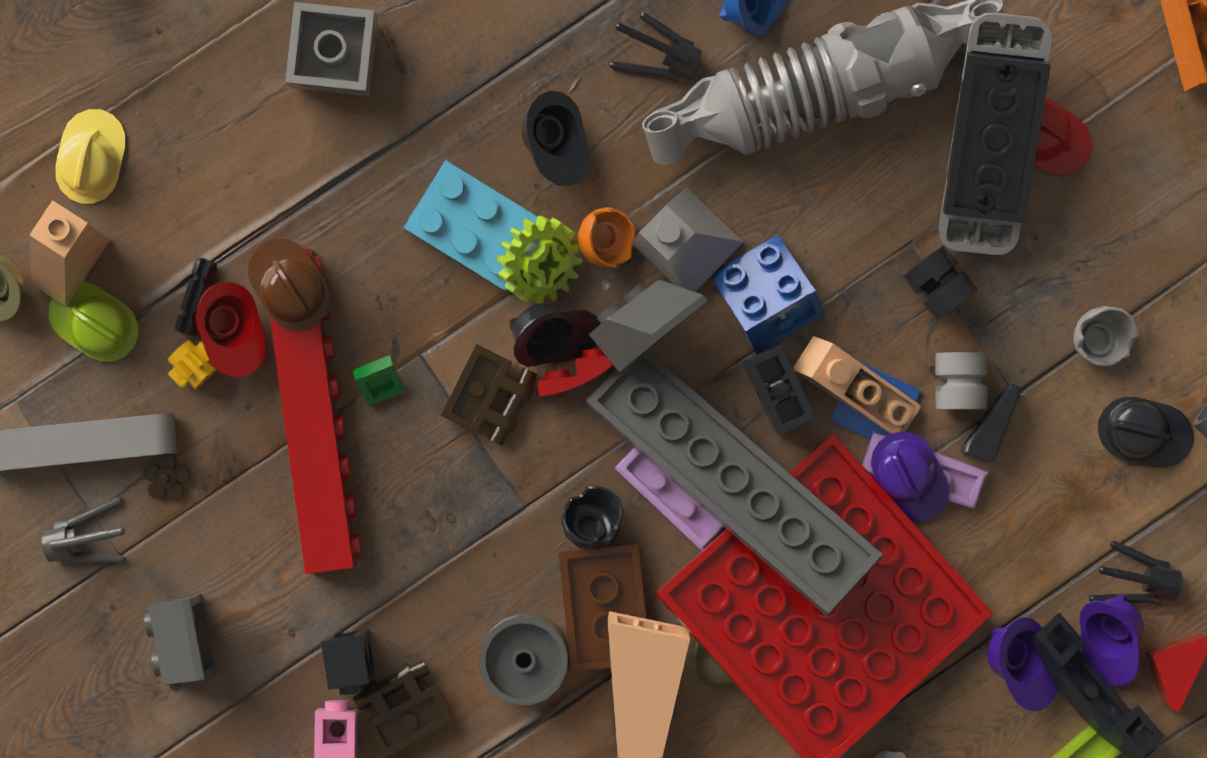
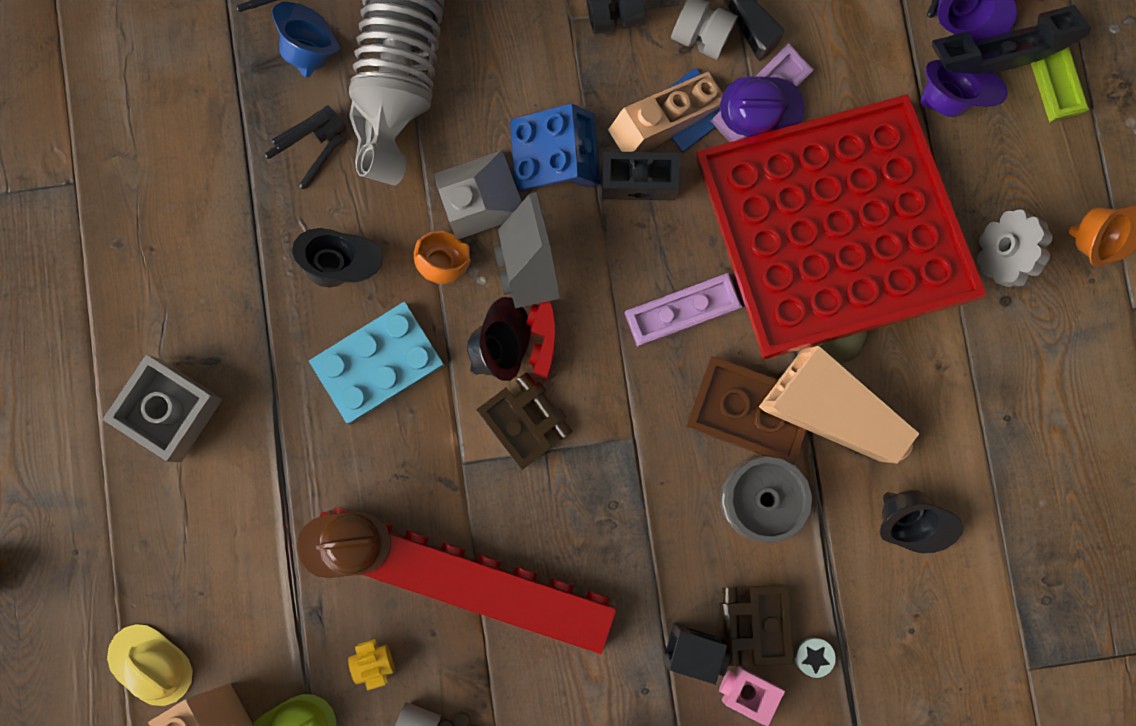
camera: 70 degrees left, 5 degrees down
(203, 271) = (315, 632): black axle -> none
(231, 329) = (357, 615): red piece -> none
(379, 380) = (466, 508): green plate -> none
(539, 259) = (431, 320): lime gear -> none
(593, 518) = (672, 382): black hair -> none
(735, 481) = (701, 245): dark grey plate -> none

